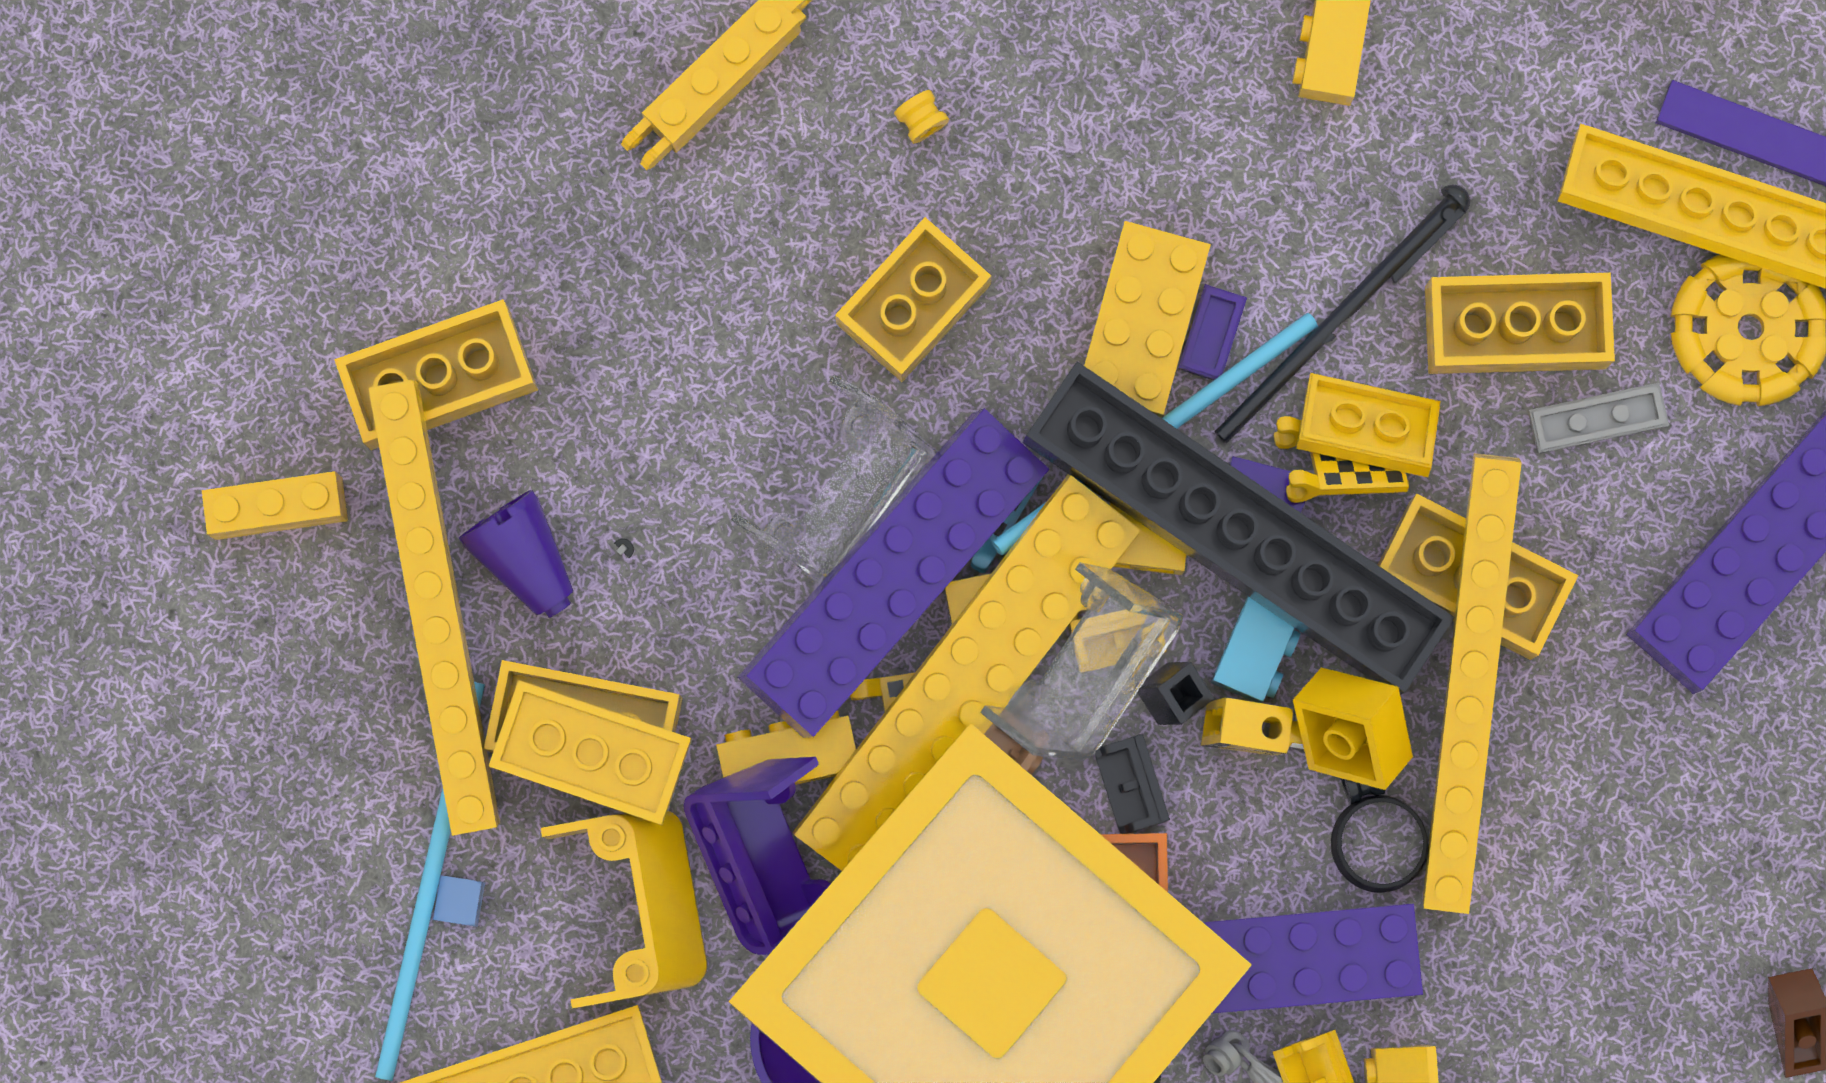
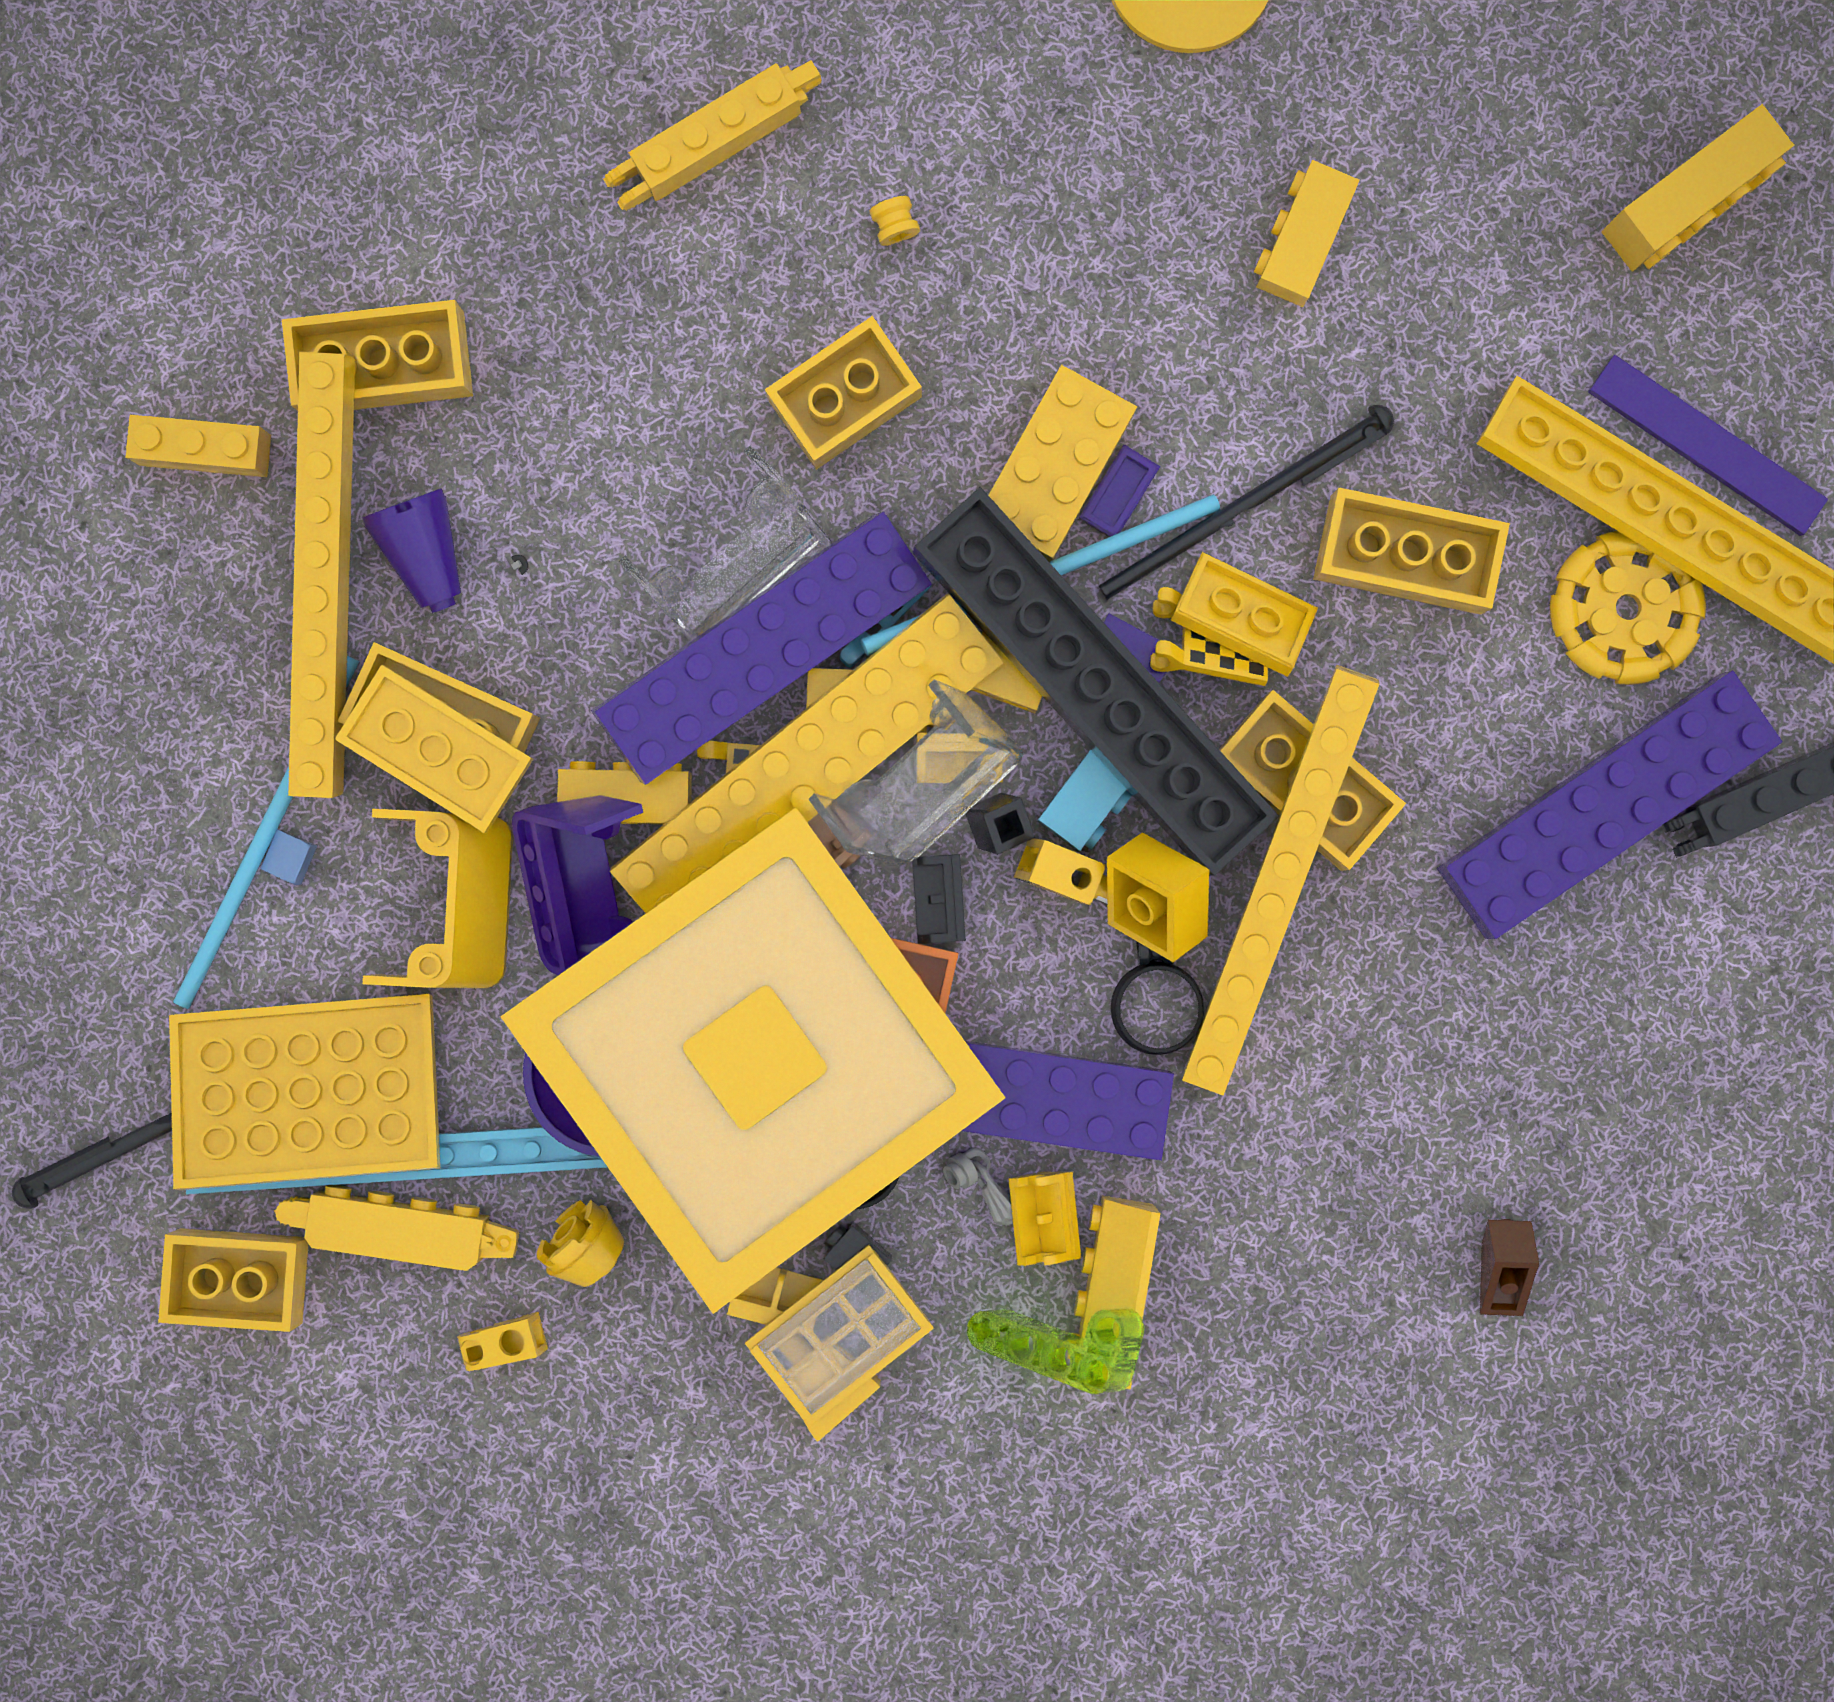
camera: 15 degrees right, 5 degrees up
(1598, 418) = (1462, 659): light grey tile -> none

